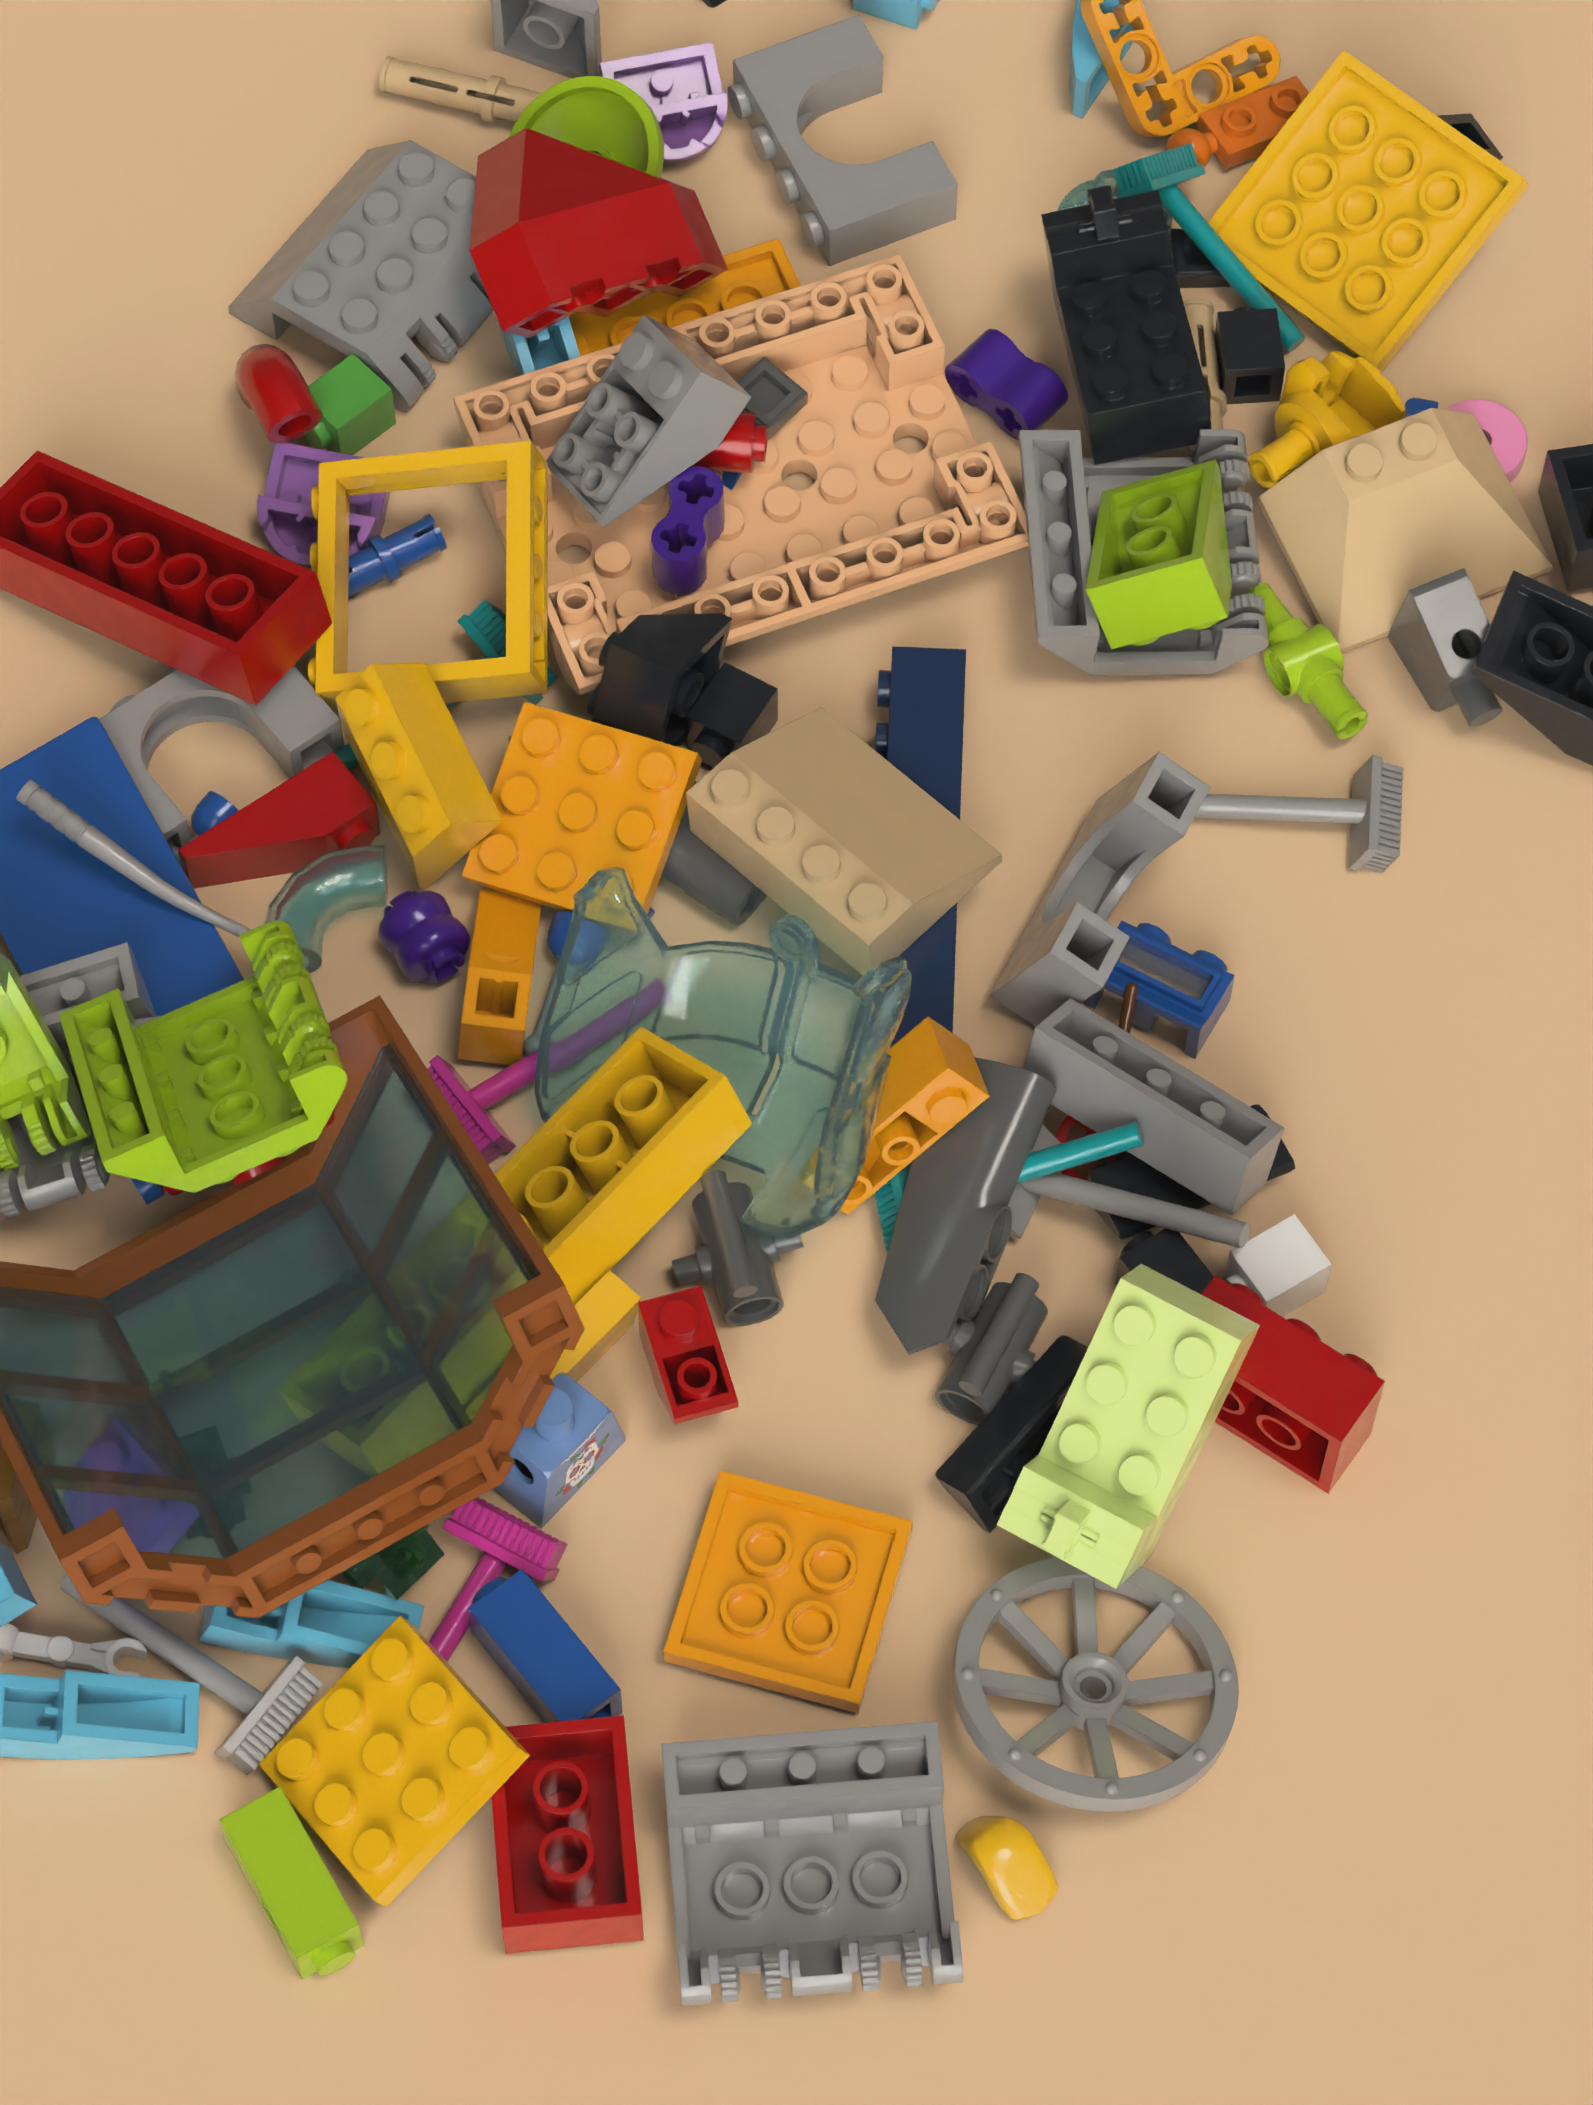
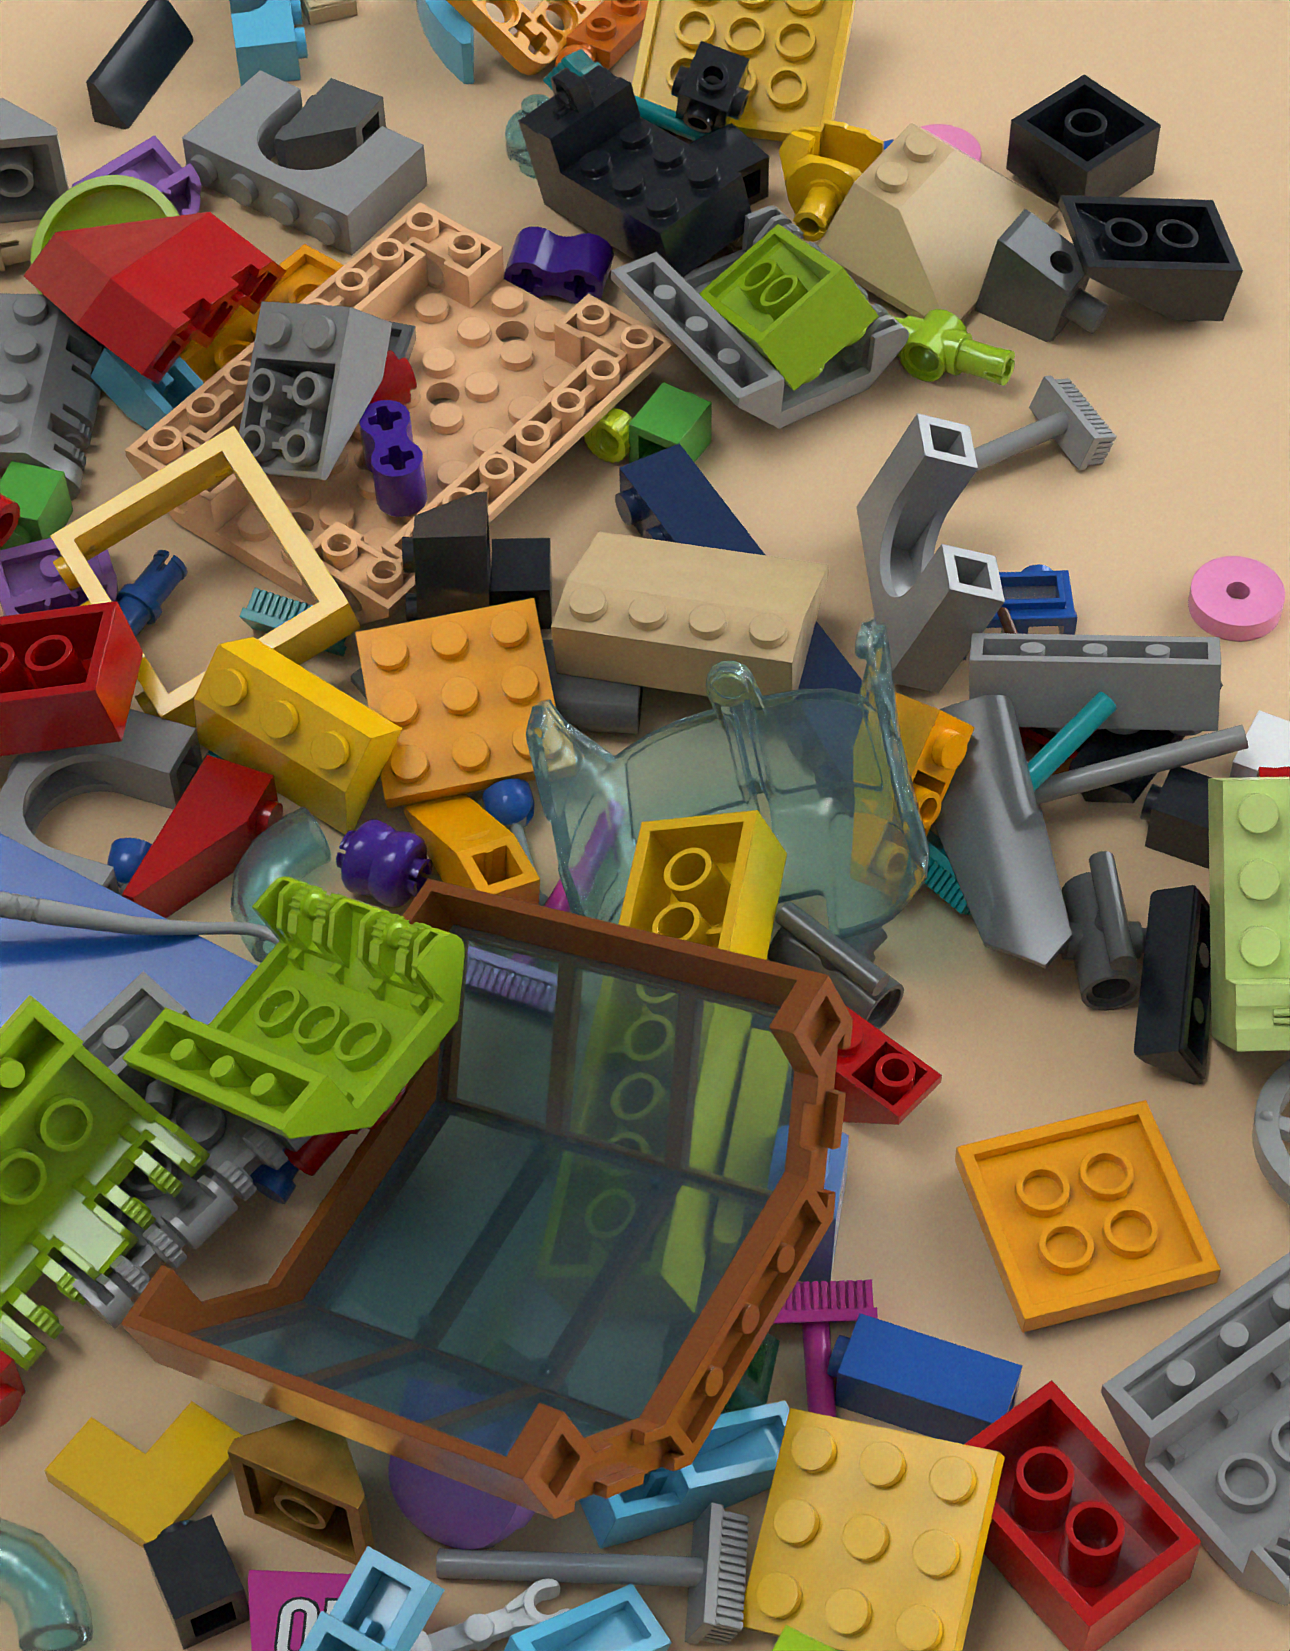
camera: 30 degrees left, 10 degrees down
(890, 114) = (329, 127): none -> dark grey slope
(927, 603) = (610, 436): none -> neon yellow axle
(984, 622) = (671, 419): none -> bright green brick
(1277, 242) = (711, 88): none -> black brick
(1388, 1110) = (1231, 619): none -> bright pink piece

